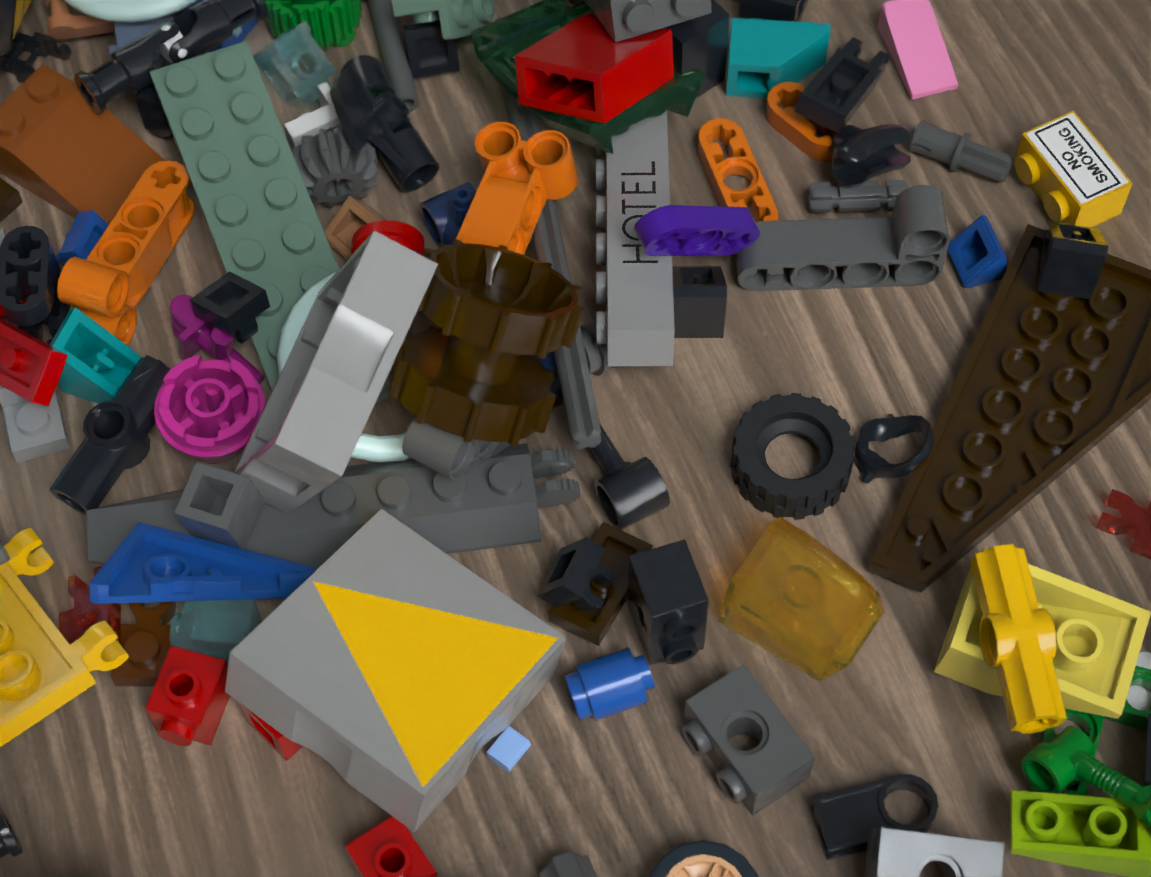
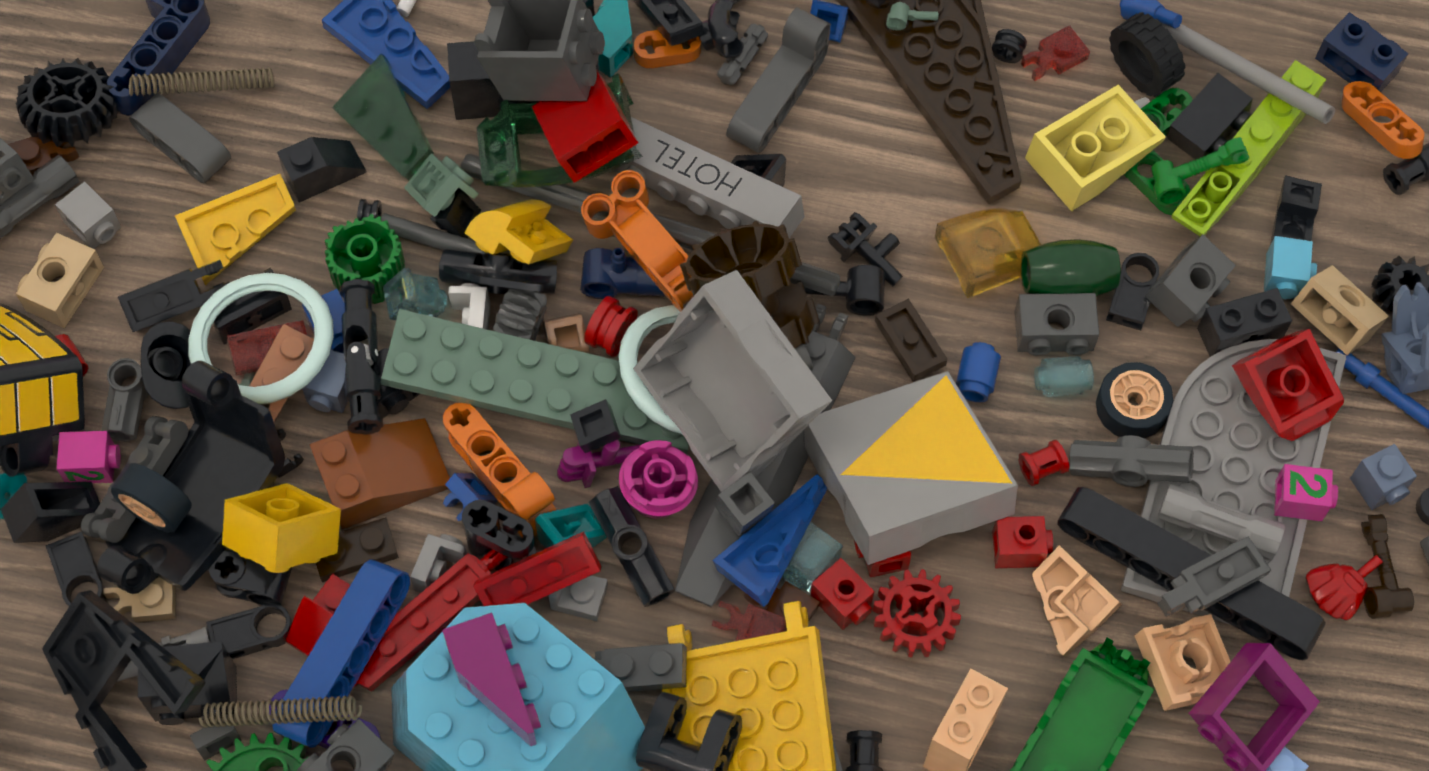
camera: 60 degrees left, 5 degrees up
(224, 821) = (924, 627): none -> red gear
(437, 104) = (521, 230): none -> yellow brick
(530, 835) = (1043, 462): none -> red bush
(572, 573) = (908, 345): black tile -> none
(667, 603) = (959, 309): black brick -> none
(675, 792) = (1064, 376): none -> clear light blue brick
(692, 453) = (873, 255): none -> black arm
(696, 230) = (737, 144): dark purple beam -> none
(739, 162) = (656, 112): orange beam -> none
(798, 416) = (901, 169): black tyre -> none
(833, 709) = (1070, 268): none -> dark green piece
(882, 430) = (907, 139): black piece -> none
(1018, 639) = (1103, 151): yellow piece -> none
(1043, 312) = (900, 14): none -> sand green hand
(1112, 464) = (1009, 46): none -> black bush

